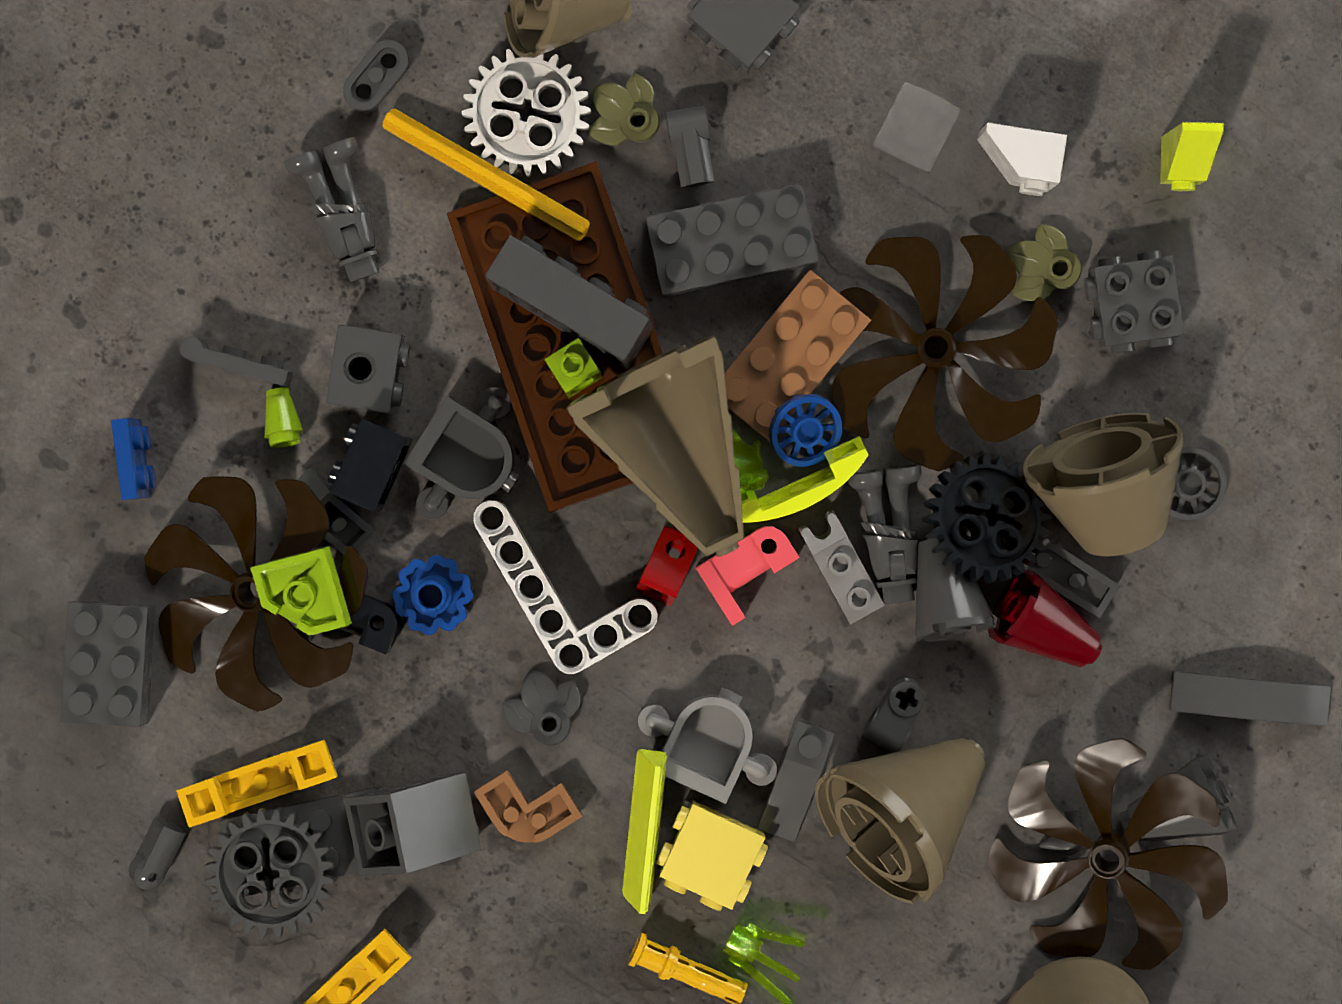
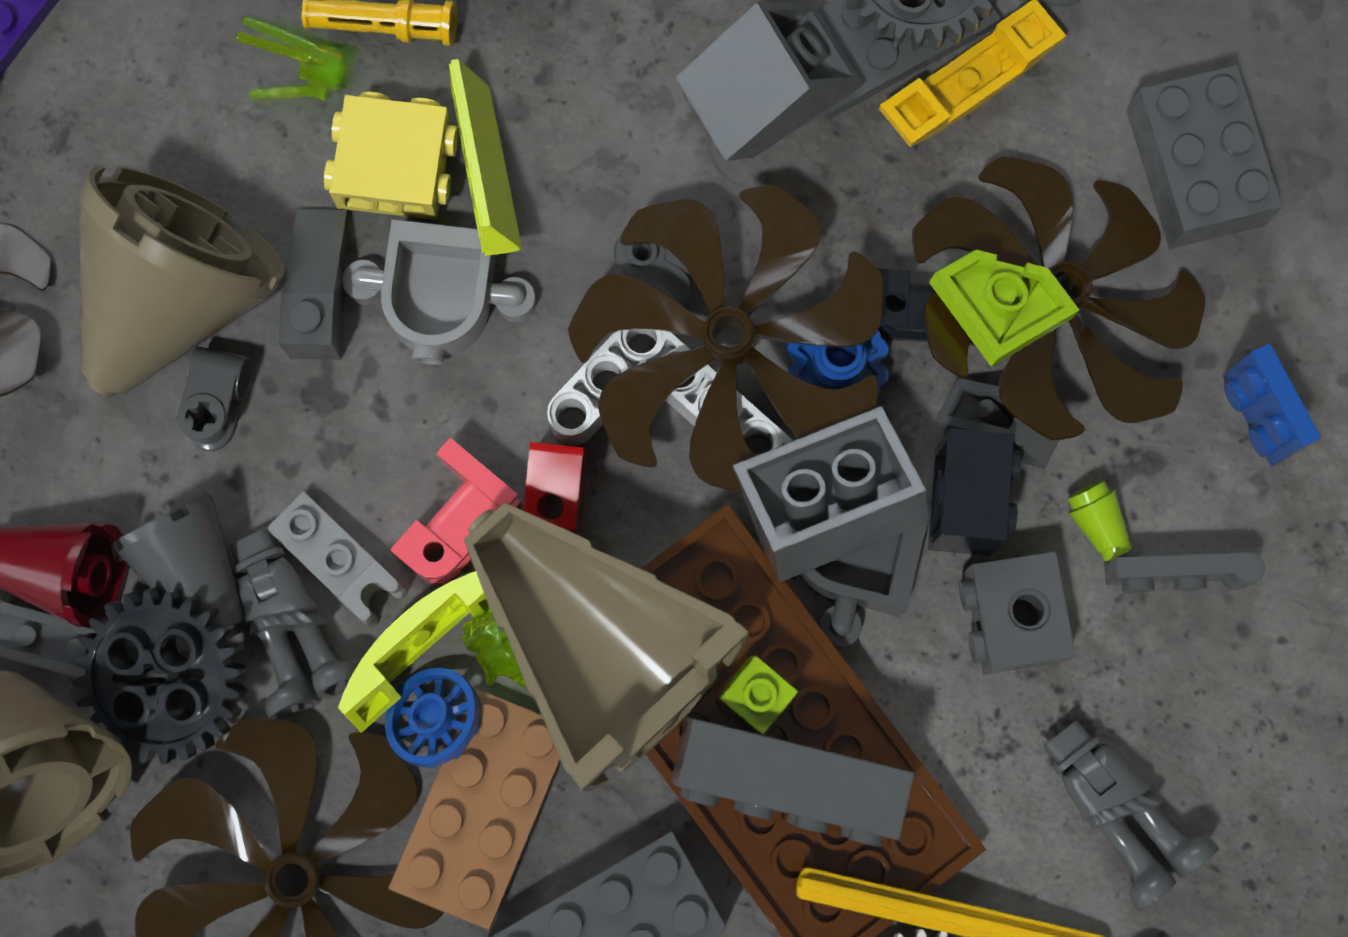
camera: 160 degrees right, 10 degrees down
(473, 493) = (832, 493): none -> dark grey slope
(523, 819) = (633, 132): medium nougat plate -> none
(573, 683) = (693, 237): none -> dark brown piece

